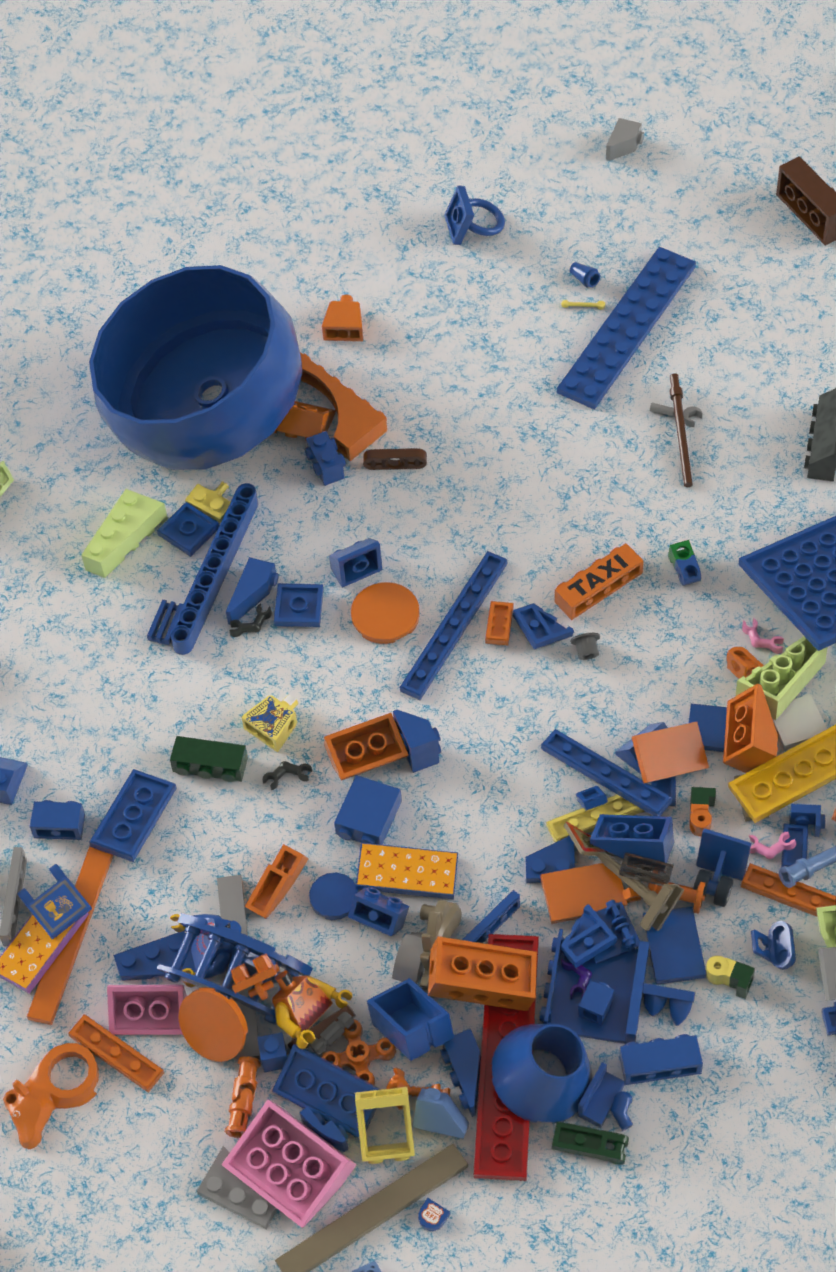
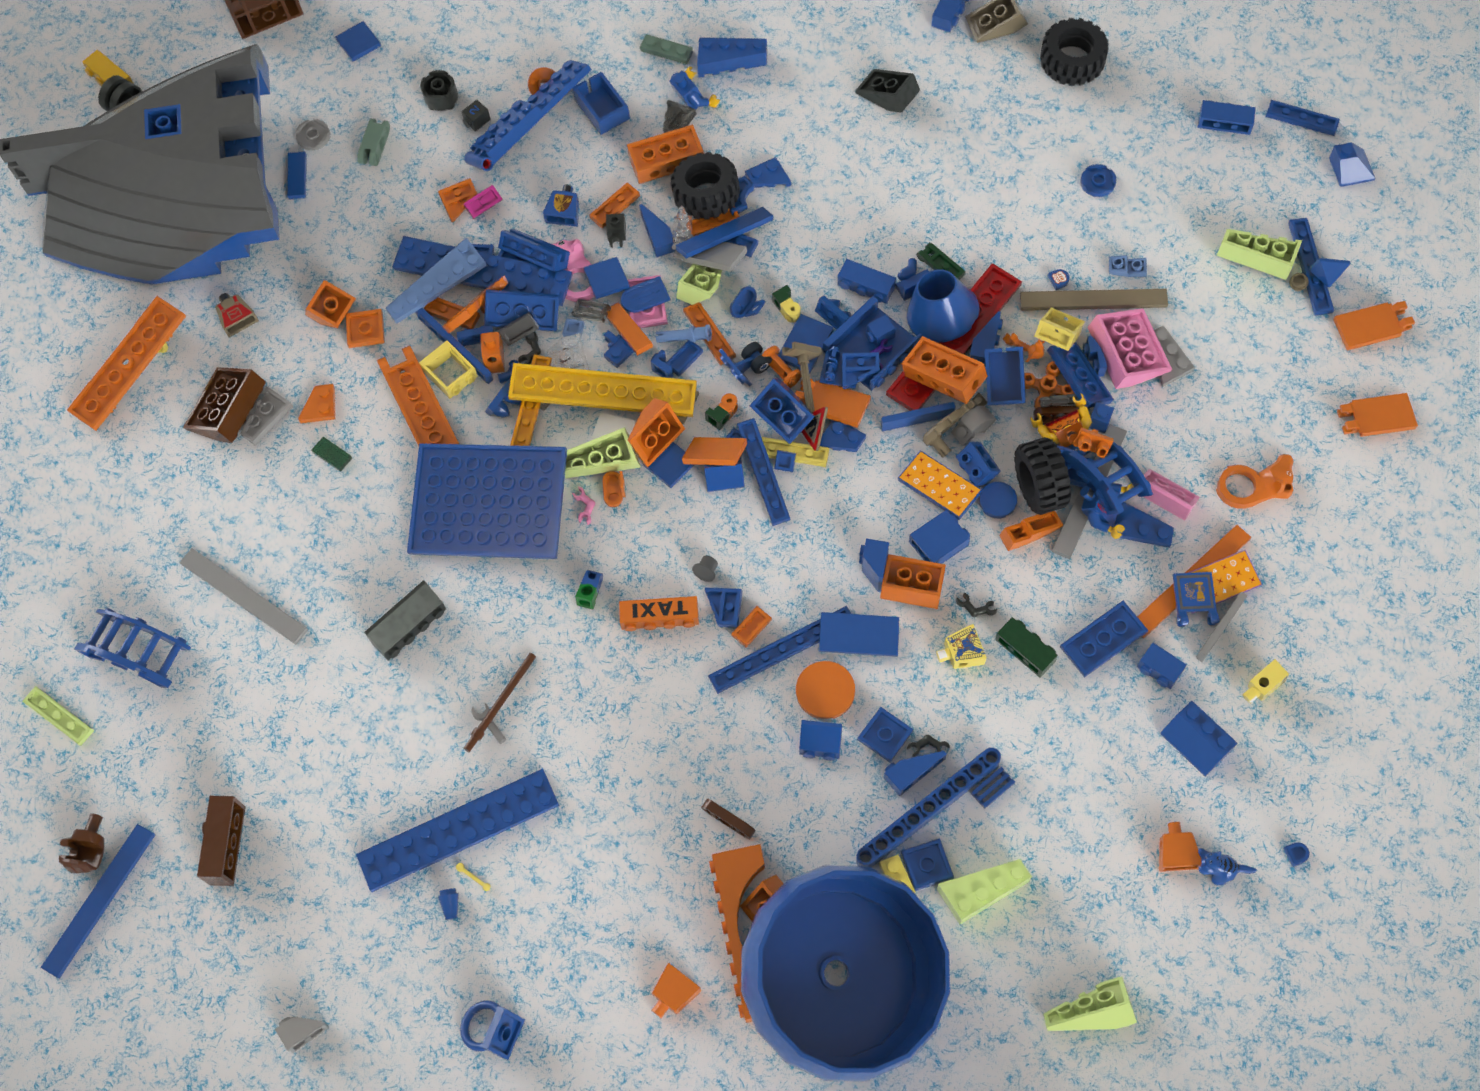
camera: 145 degrees left, 10 degrees up
(116, 1053) = (1202, 480): orange tile -> none
(212, 1024) = (1133, 445): orange tile -> none
(242, 1096) = (1135, 404): orange piece -> none
(292, 915) = (1042, 475): none -> black tyre
(325, 459) = (780, 861): blue brick -> none
(386, 674) = (859, 634): none -> blue tile
(439, 1114) = (1020, 322): medium blue slope -> none
(646, 869) = (803, 389): clear smoke tile -> none
(770, 852) = (703, 359): bright pink arm -> none

